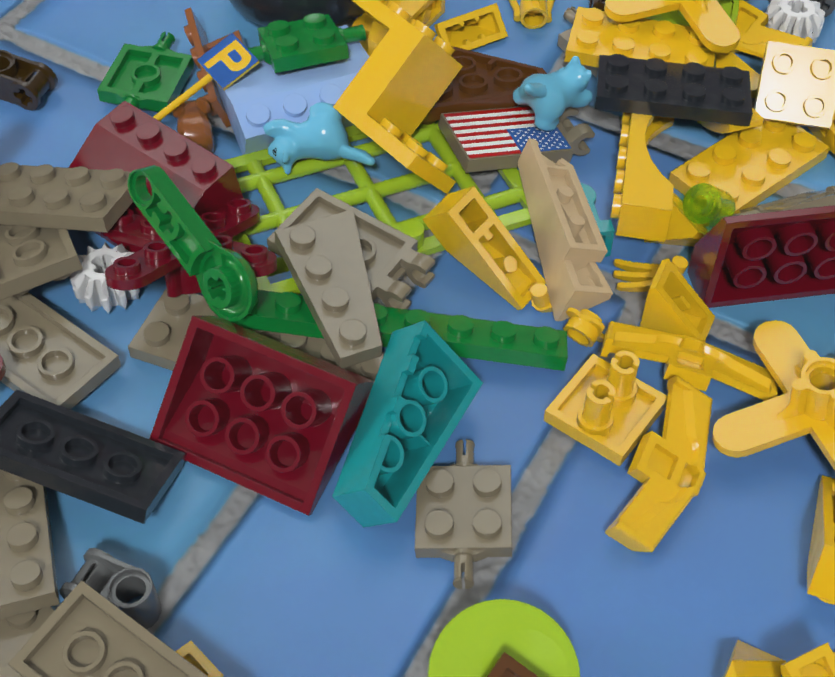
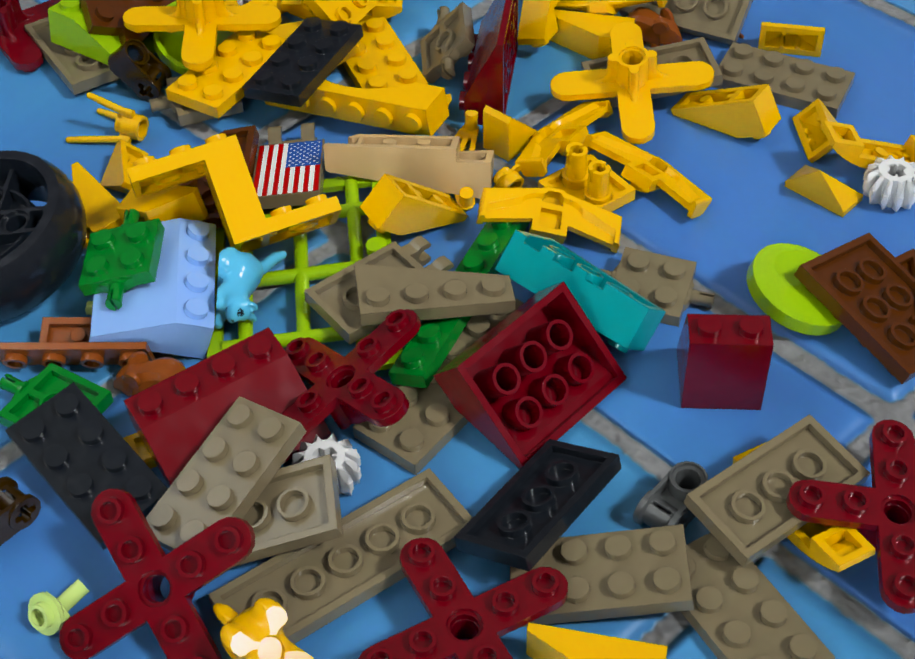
camera: 70 degrees left, 5 degrees down
(74, 107) = (83, 456): none -> black plate
(222, 274) = (378, 351): green beam -> none
(223, 63) = (119, 313): piece -> none
(332, 593) = (724, 361): none -> dark red slope
(527, 376) = (551, 214): none -> yellow plate
(554, 93) = (271, 122): medium azure animal -> none
(707, 204) = (431, 72): clear neon green brick -> none

